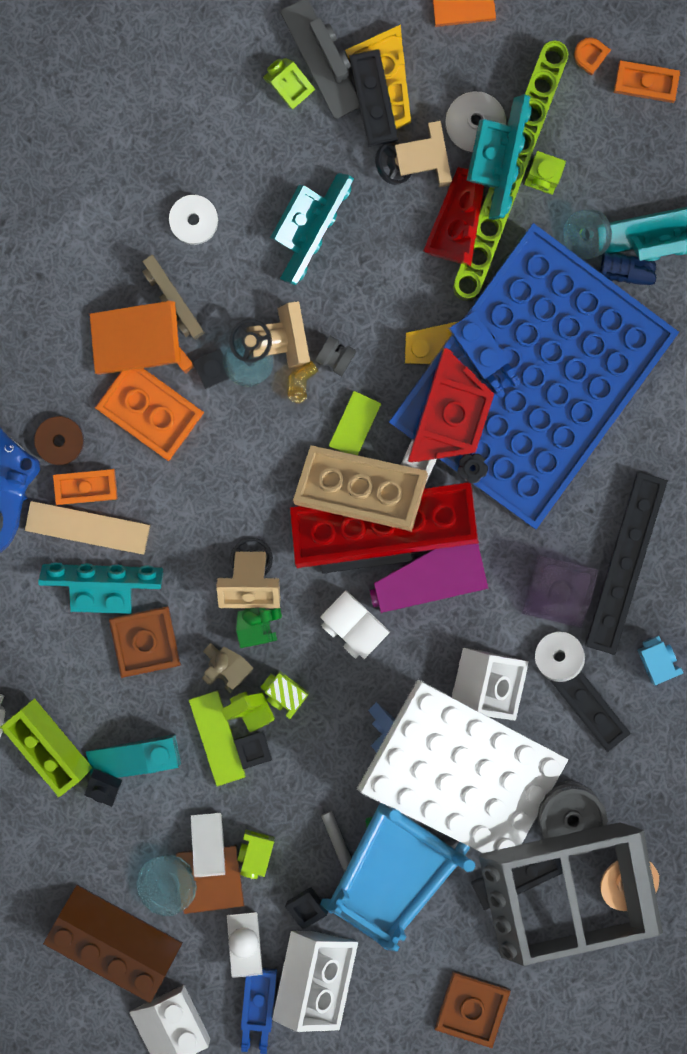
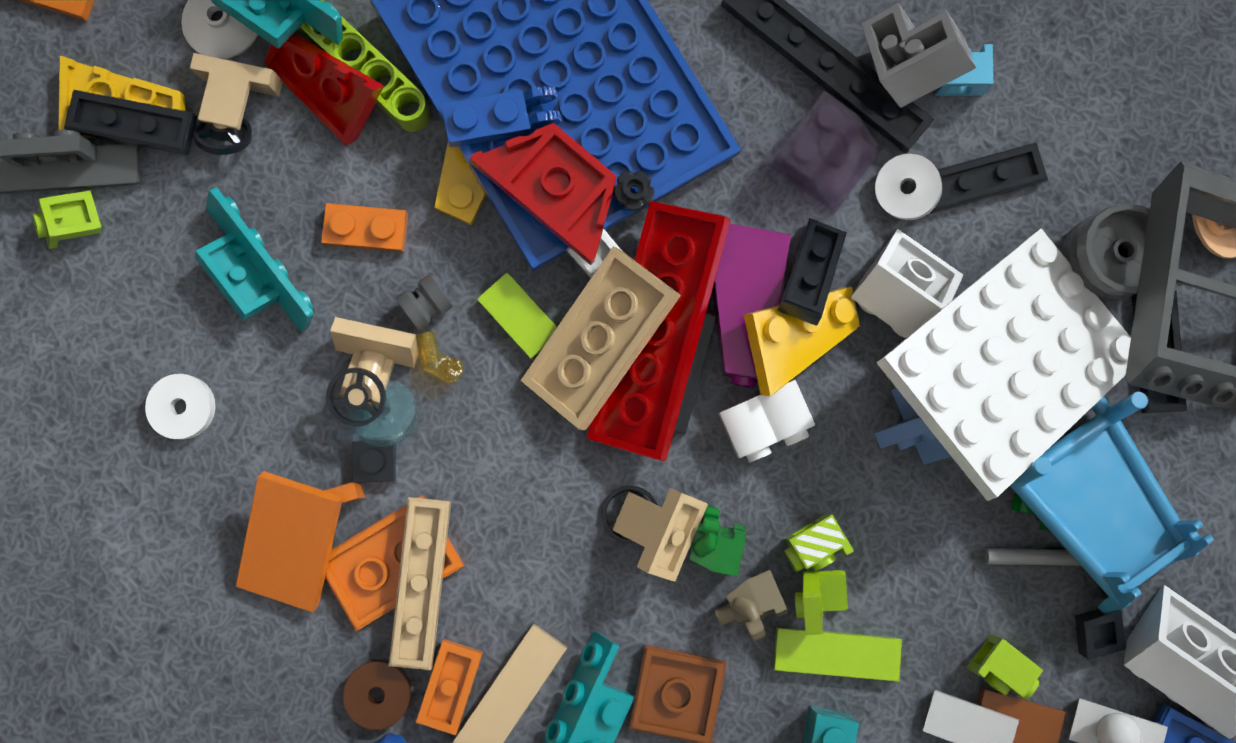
camera: 70 degrees left, 5 degrees down
(145, 437) = (420, 583): none -> tan tile
(156, 275) = (224, 481): dark tan plate -> none
(253, 749) = (871, 614): black plate -> none
(371, 290) = (364, 227): none -> orange plate
(422, 621) = (787, 345): none -> yellow wing
(469, 614) = (812, 272): none -> black tile
(647, 622) = (917, 58): none -> light grey brick

